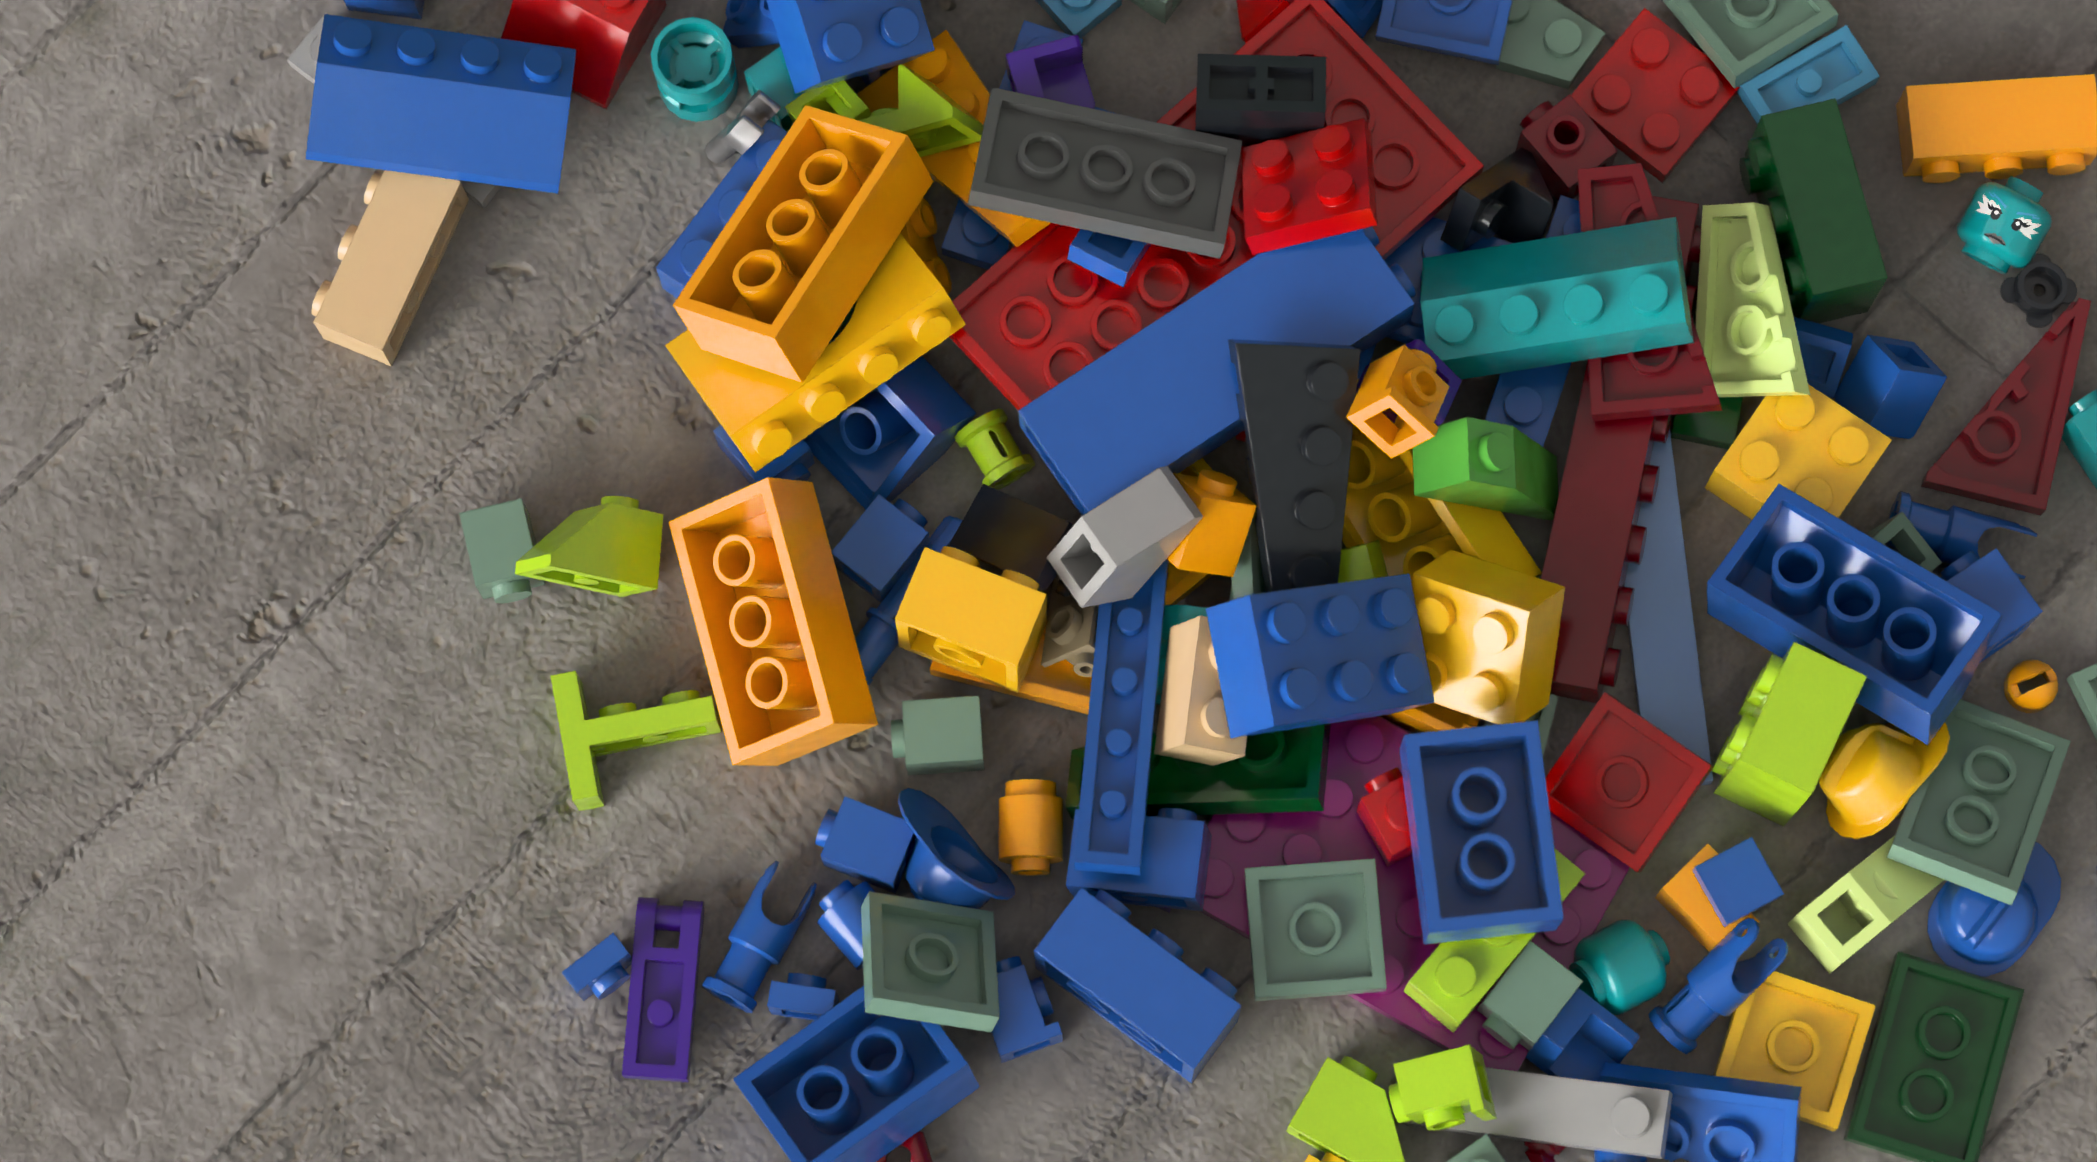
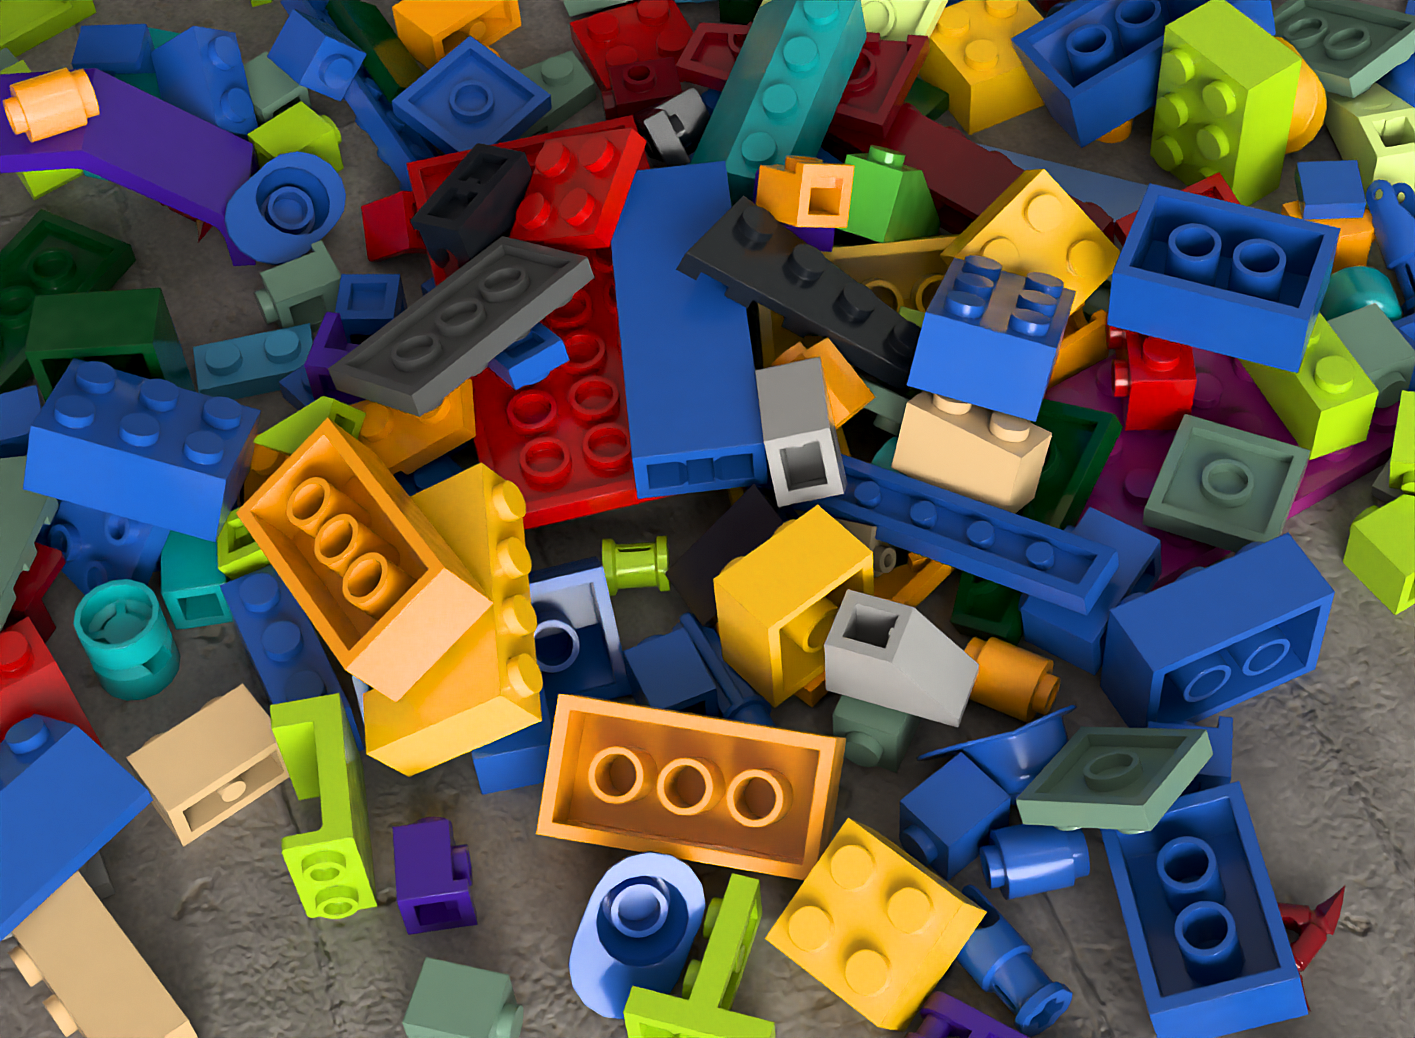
camera: 60 degrees left, 25 degrees down
(600, 549) = (524, 912): lime slope -> none
(611, 452) = (432, 877): none -> dark purple brick
(615, 353) = (320, 753): none -> lime panel
(619, 211) = (210, 764): none -> tan brick
(631, 645) = (635, 930): none -> blue piece
(720, 832) = (875, 926): none -> yellow brick
(744, 129) = (214, 602): flat silver bar -> none
(801, 997) = (1083, 940): blue plate -> none
(953, 736) = (897, 660): none -> light grey slope
(1146, 49) = (368, 303): none -> blue panel

